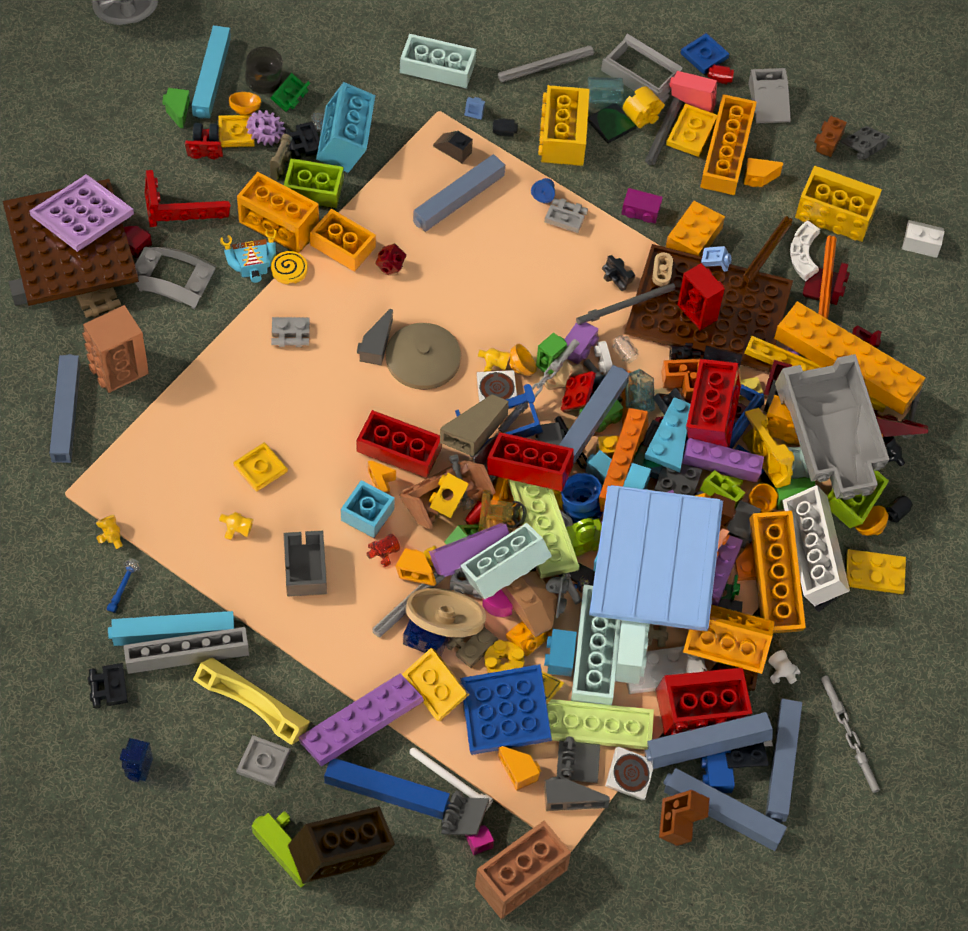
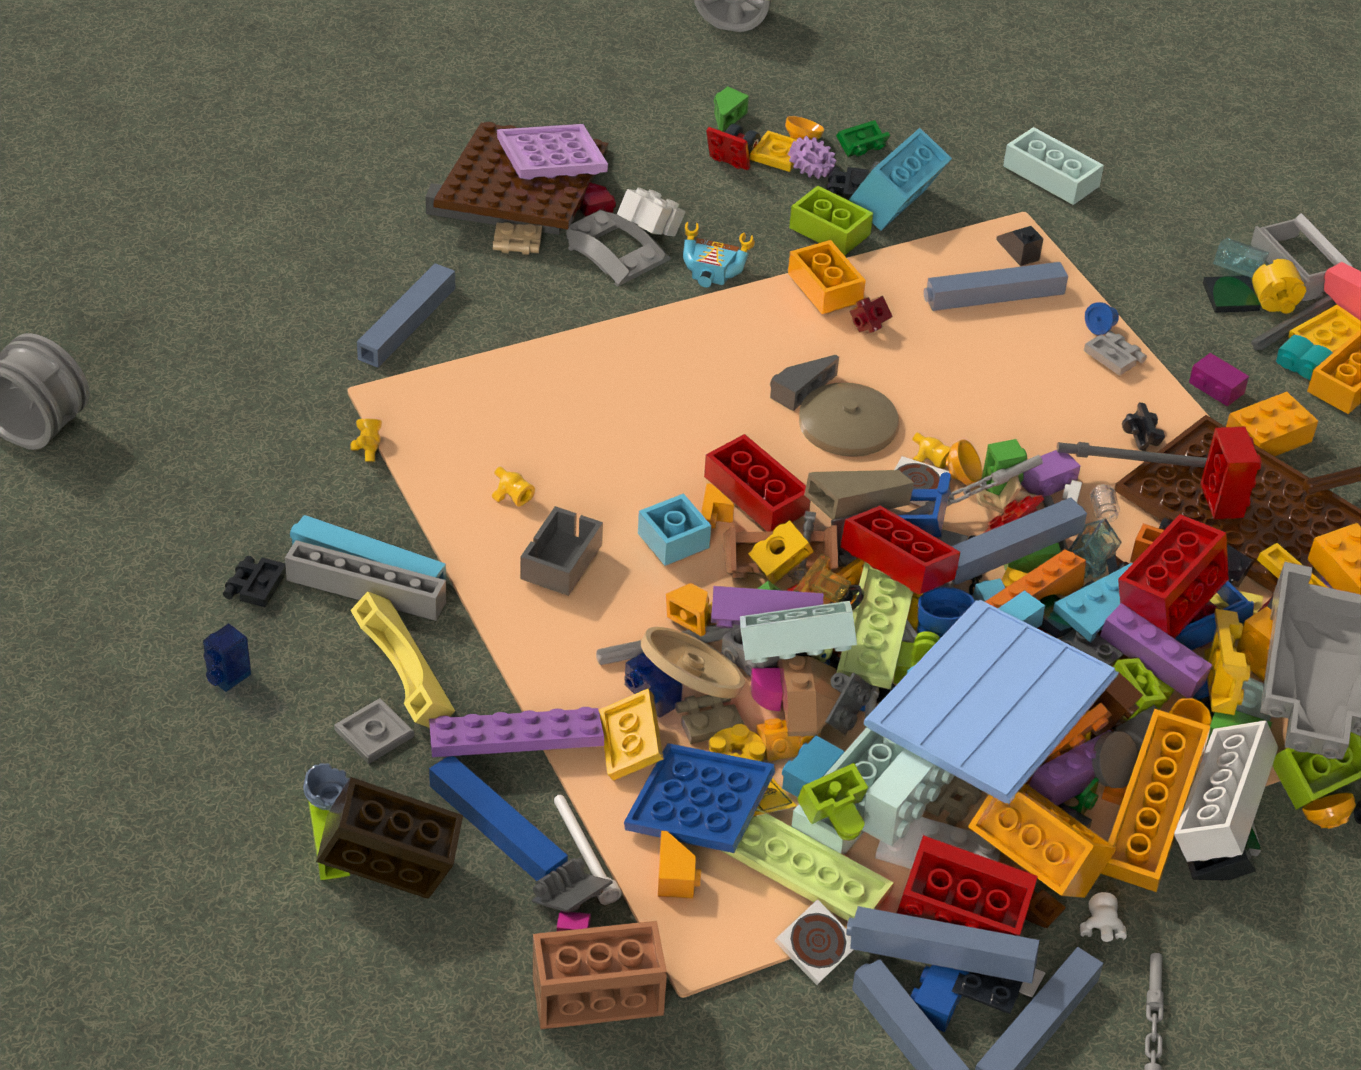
camera: 30 degrees right, 15 degrees down
(115, 349) = (493, 270): nougat brick -> none
(131, 566) = (367, 481): blue piece -> none
(179, 211) = (688, 200): red bracket -> none
(185, 235) = (651, 211): none -> white brick
(211, 72) = (786, 93): medium azure brick -> none
(260, 467) = (580, 445): yellow plate -> none
(264, 70) = (844, 105): clear smoke wheel -> none
(272, 206) = (772, 217): light orange brick -> none
(274, 826) = (324, 785): none -> sand blue hair
(283, 154) = (804, 183): dark tan plate -> none
(289, 267) = (749, 283): yellow tile -> none
(290, 327) = (708, 339): light grey plate -> none
(383, 548) = (667, 576): clear red piece -> none
(474, 108) = (1069, 222): medium blue tile -> none
(505, 127) = (1095, 251): black brick -> none
(545, 63) = (1185, 214): light grey axle -> none
(564, 125) = (1167, 269): yellow brick -> none
(568, 795) = (719, 927): dark grey slope -> none
(578, 761) = (757, 897): dark grey hinge -> none
(598, 676) = (836, 798): none -> lime brick
(661, 270) = (1199, 439): tan plate -> none
(680, 813) = (852, 1015): dark orange brick -> none
(687, 160) = (1301, 355): none -> teal brick
(716, 256) = (1281, 451): light blue bracket -> none
(741, 555) = (1114, 759): none -> dark grey tile
(875, 571) = (1303, 870): yellow plate -> none

